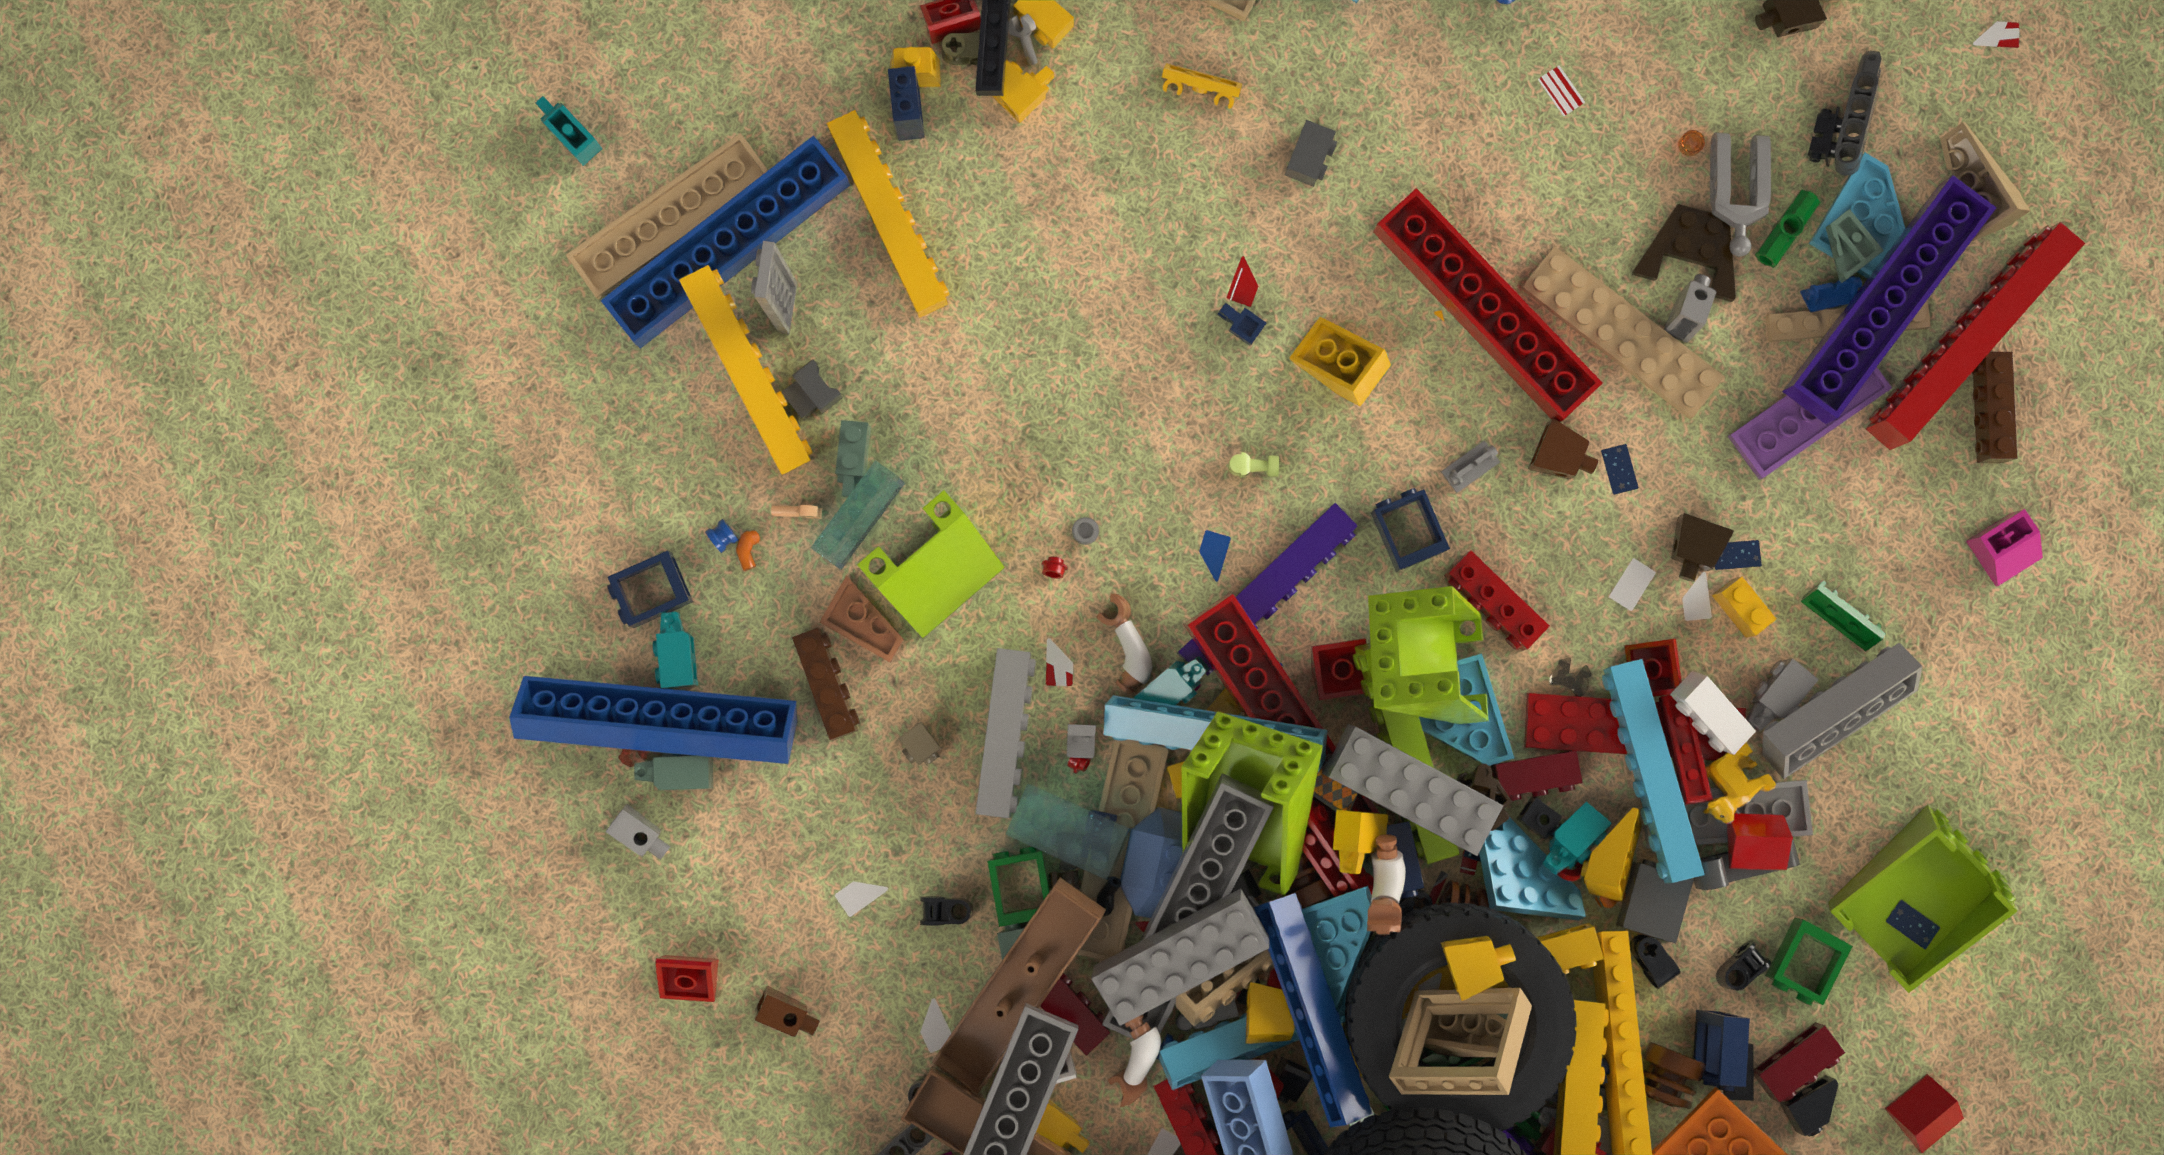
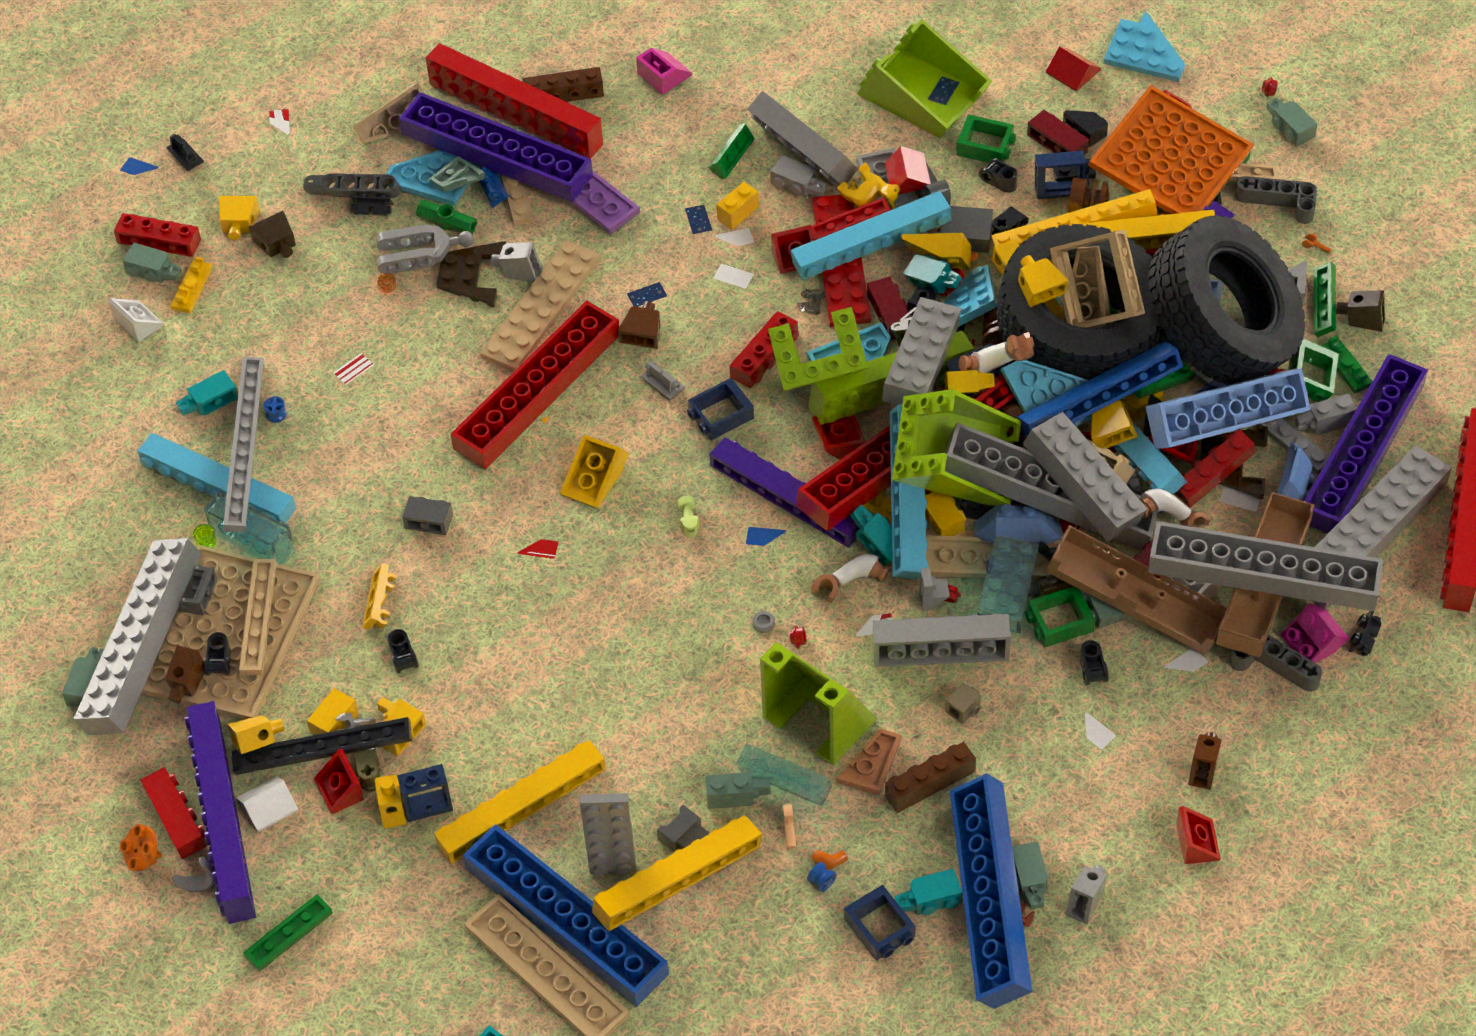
camera: 95 degrees left, 30 degrees down
(1115, 103) = (402, 654): none -> black piece
(1245, 325) = (574, 538): dark blue plate -> none
(1698, 545) = (697, 237): dark brown torso -> none
(1712, 713) = (821, 204): white brick -> none

